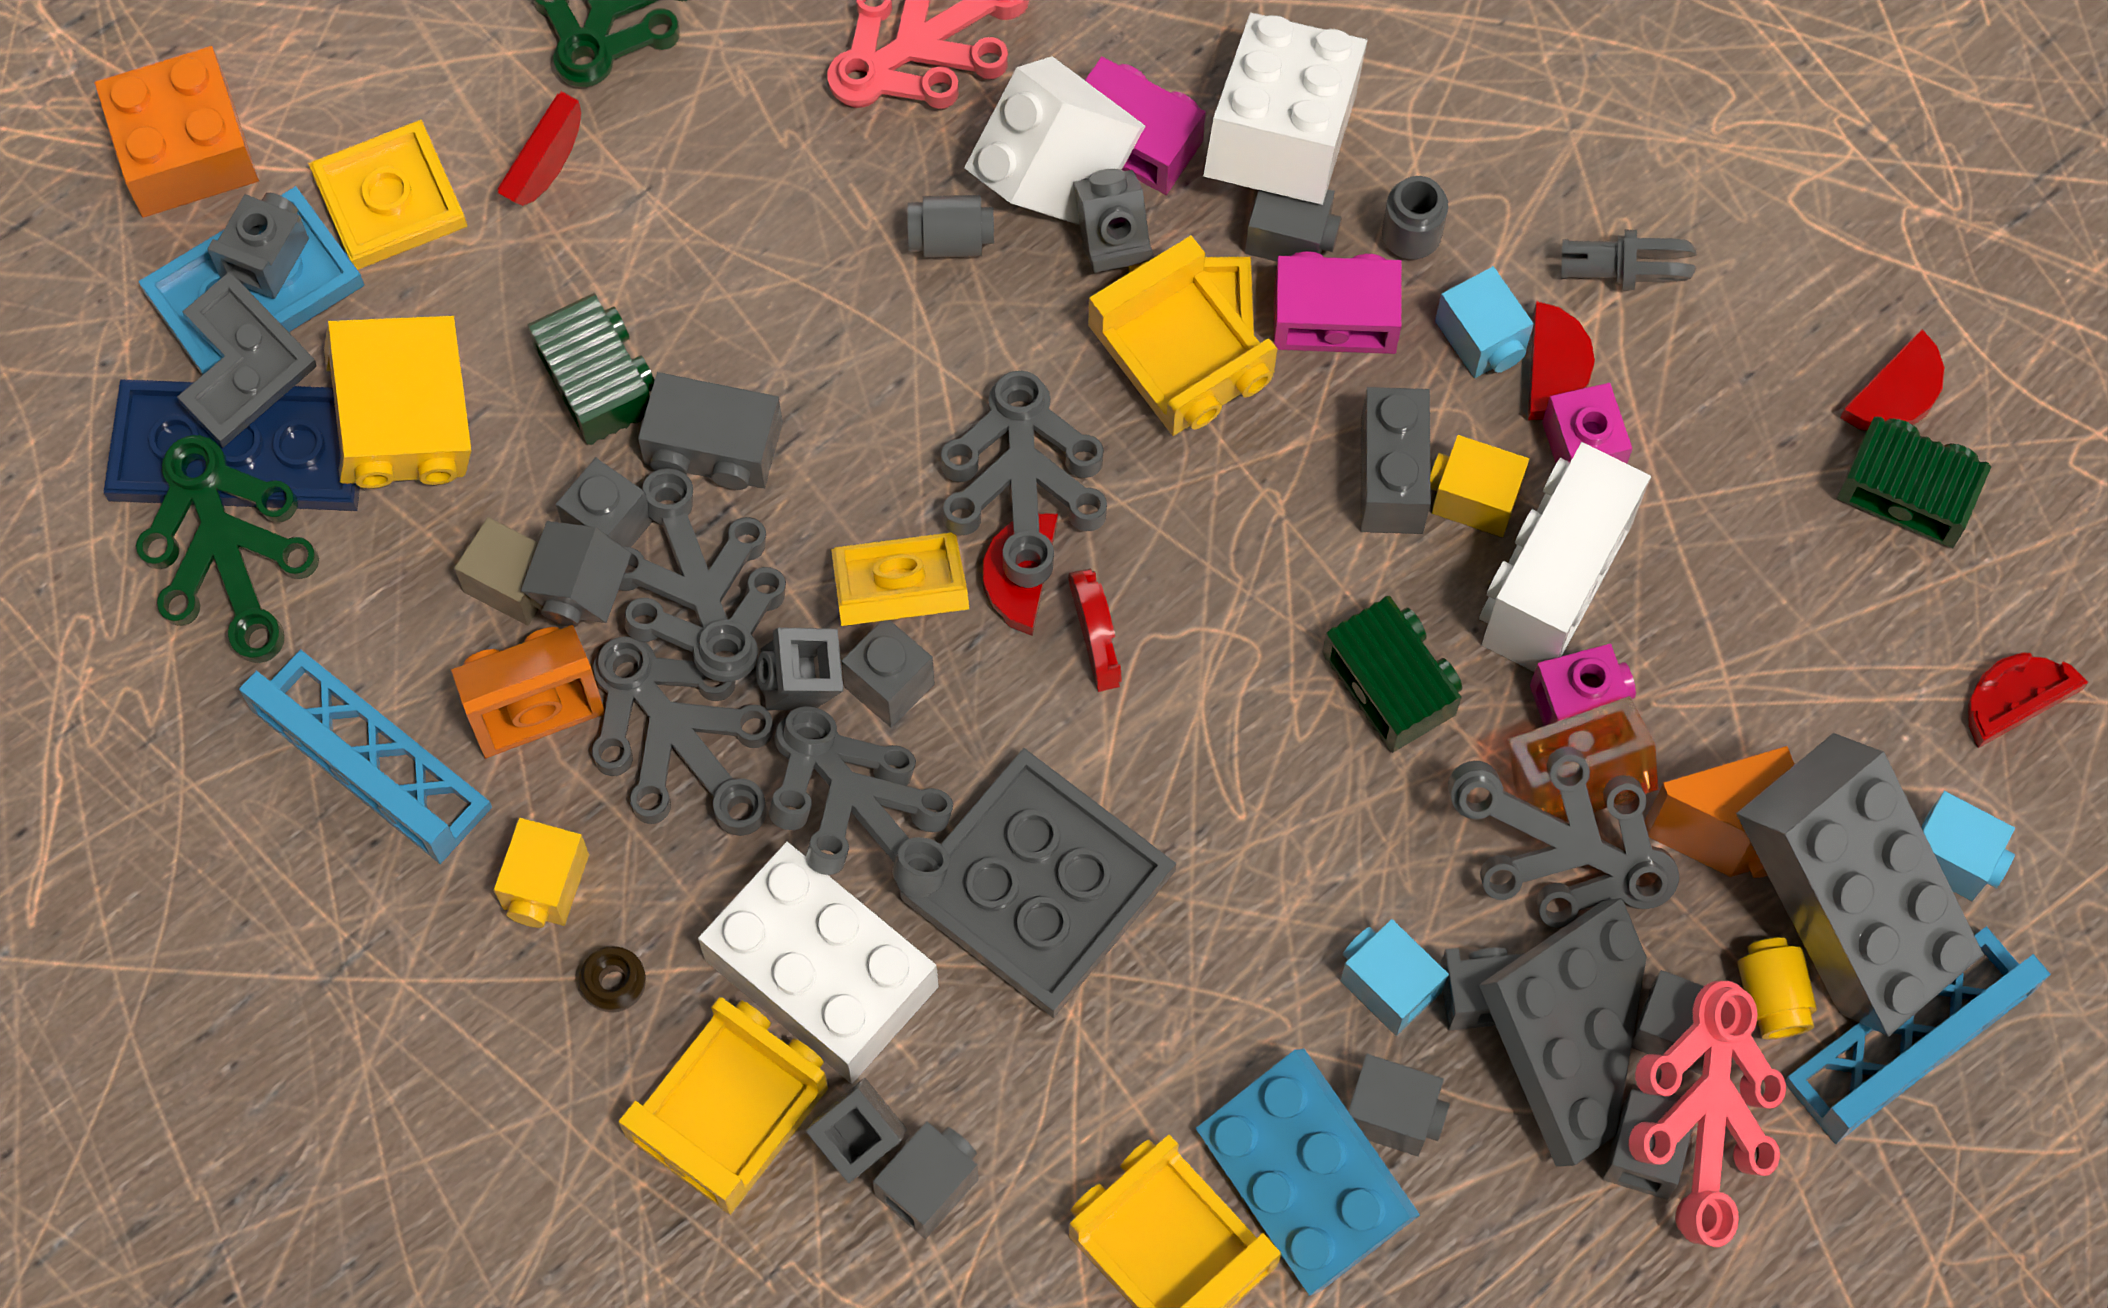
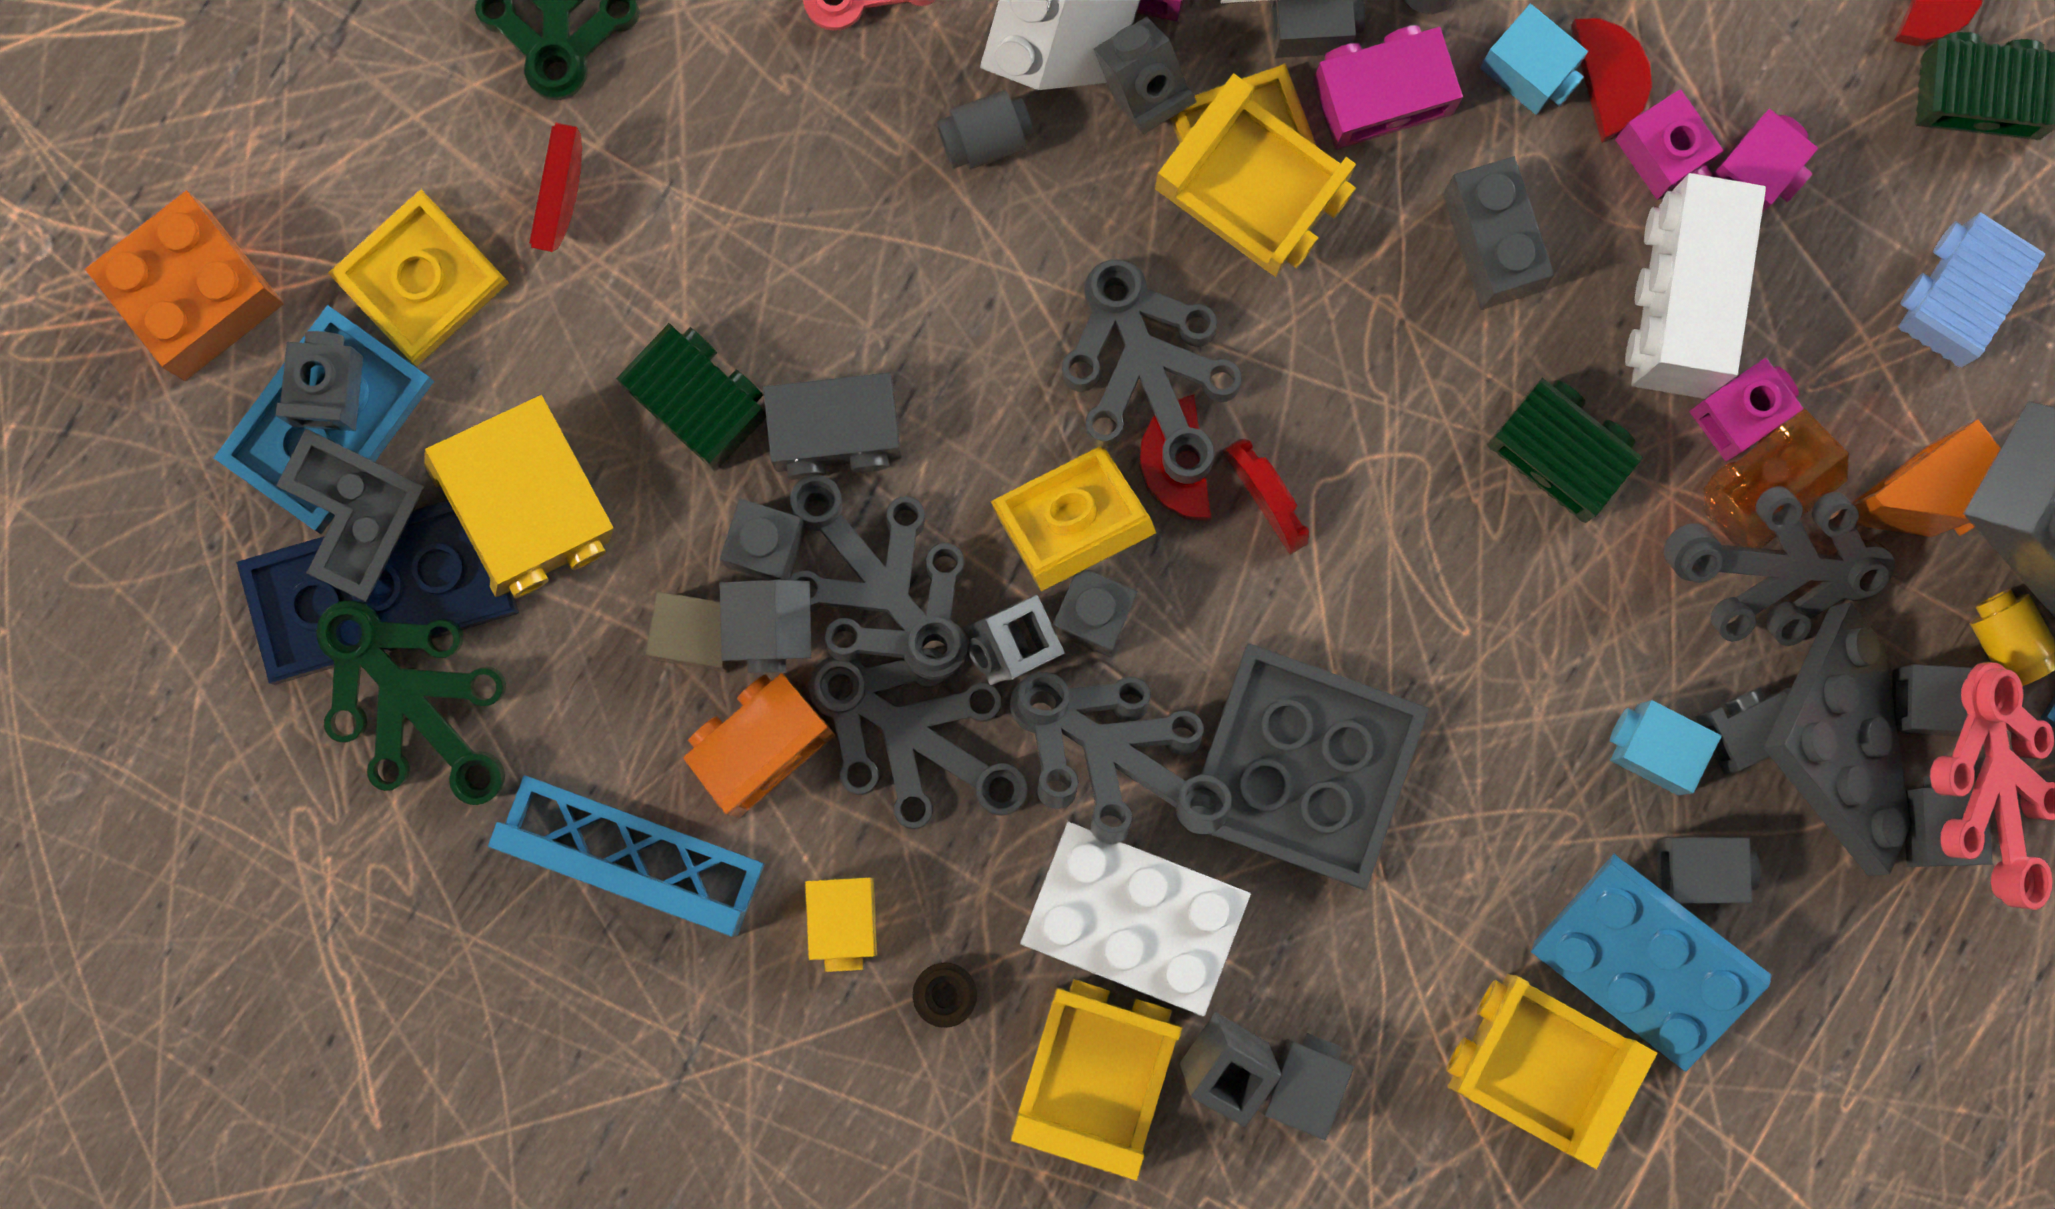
camera: 20 degrees left, 15 degrees up
(1477, 484) = (1586, 230): yellow brick -> none
(1681, 482) = (1771, 156): none -> dark pink brick
(1834, 653) = (1969, 289): none -> light blue brick

